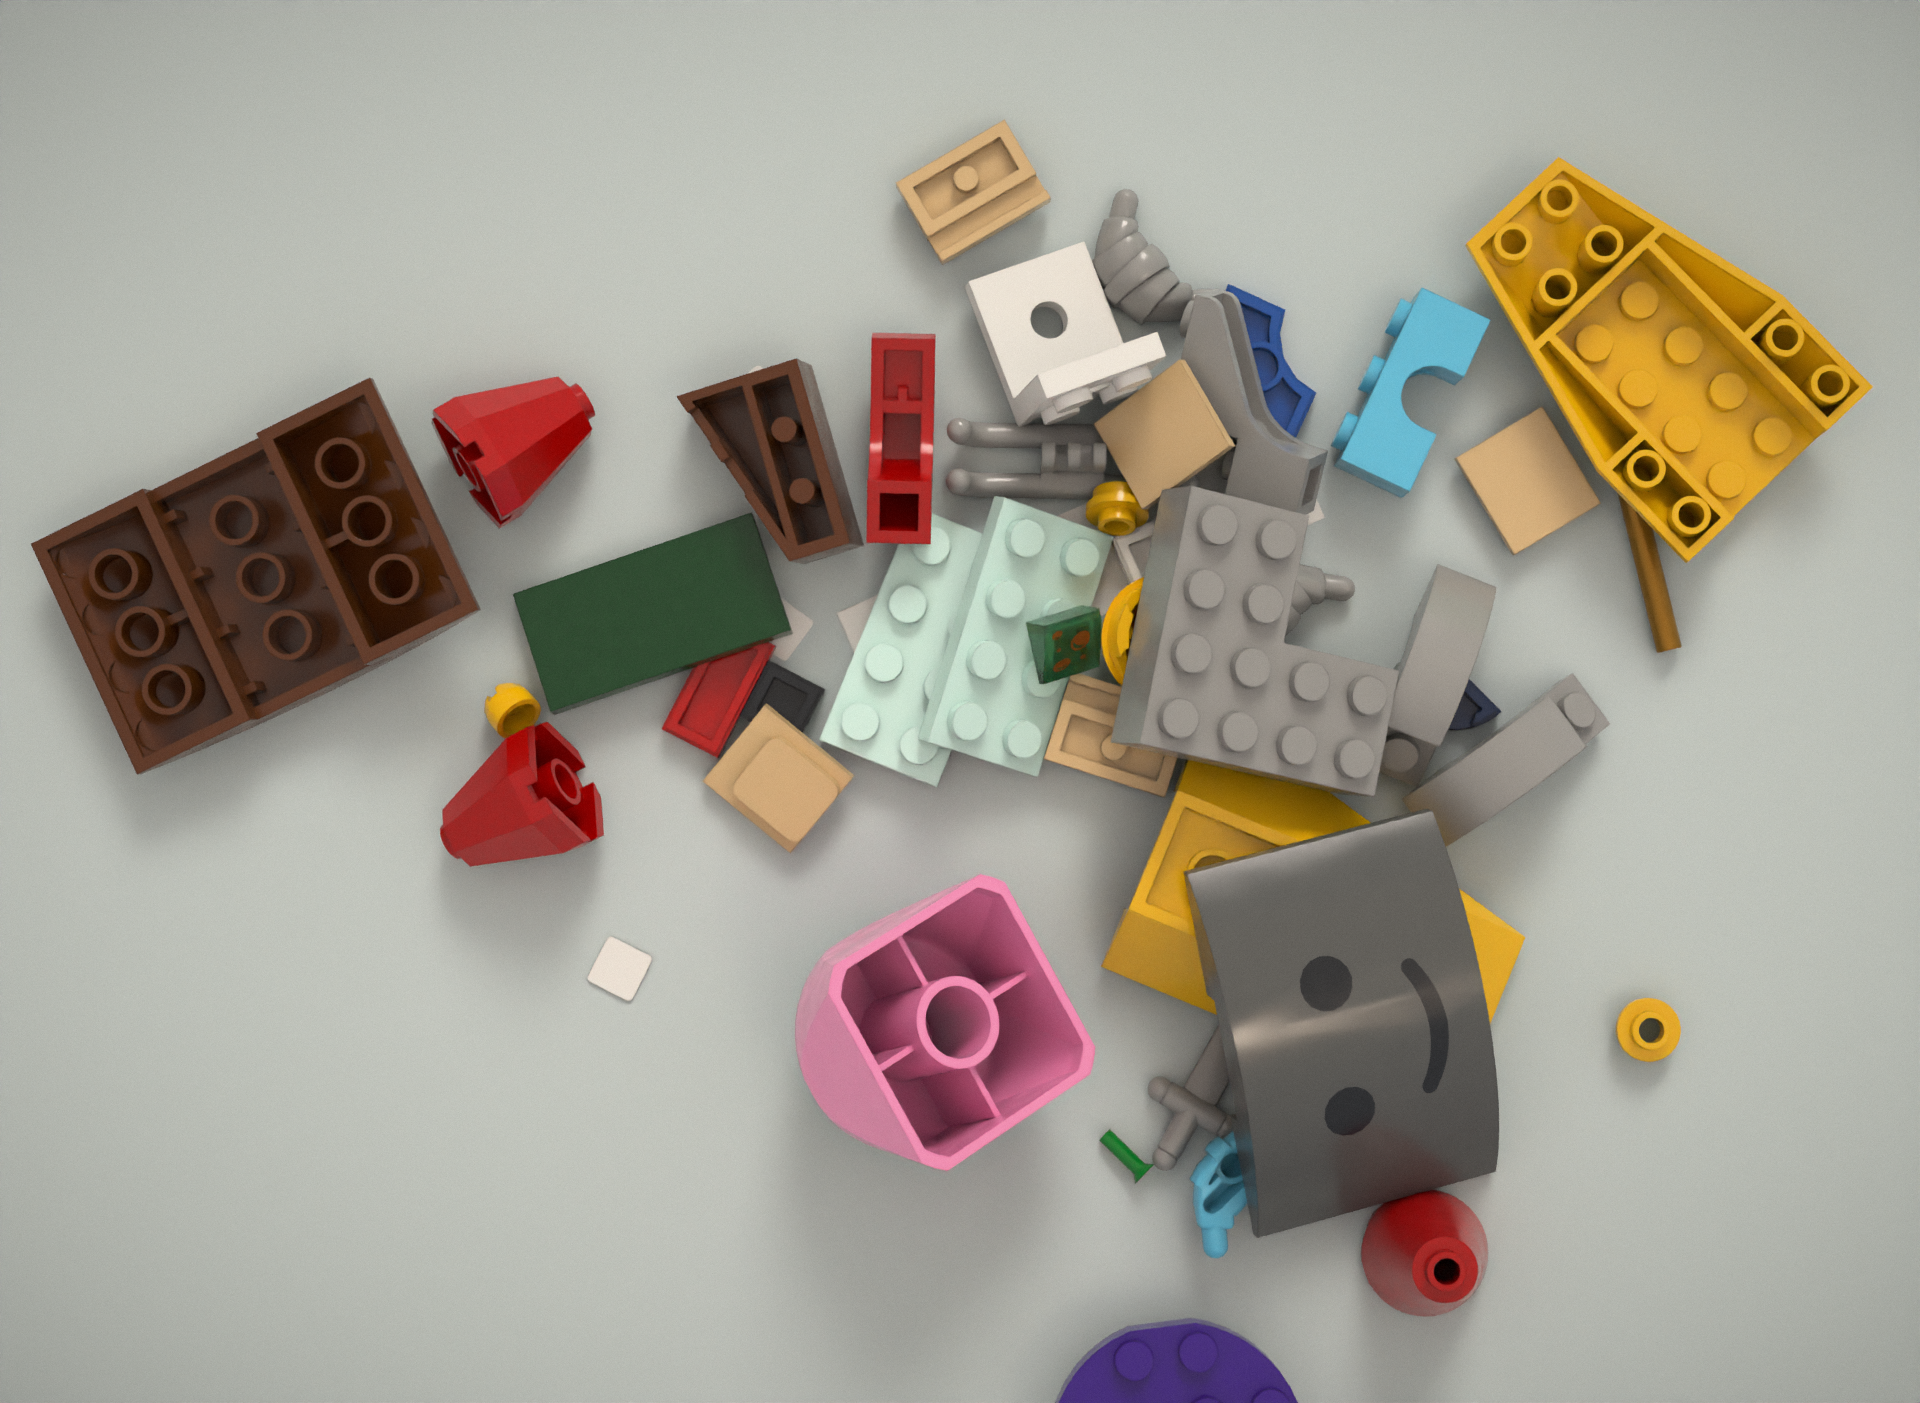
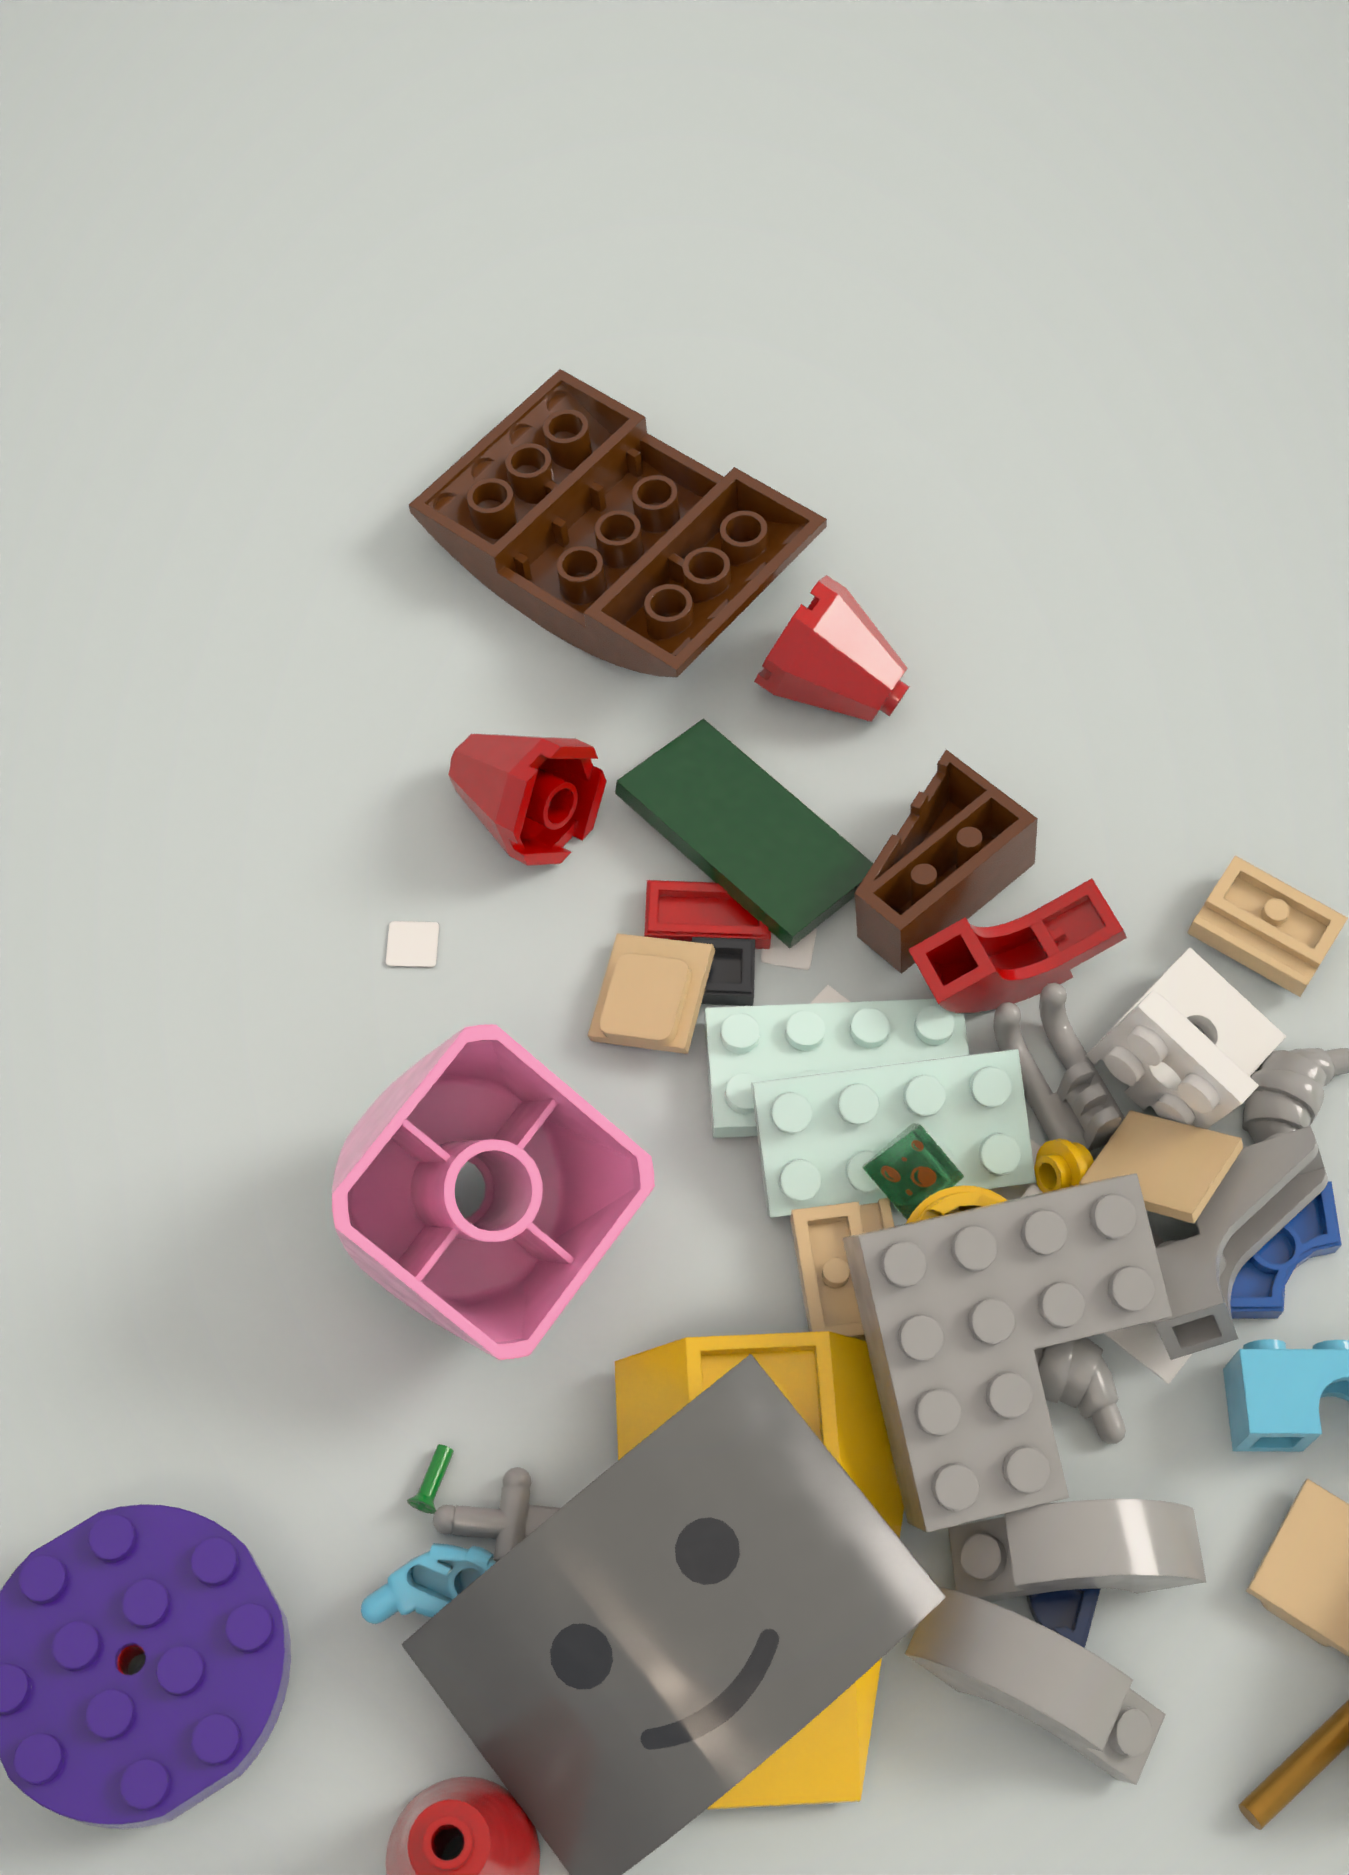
camera: 65 degrees right, 25 degrees down
(511, 709) = (618, 754): yellow hinge -> none

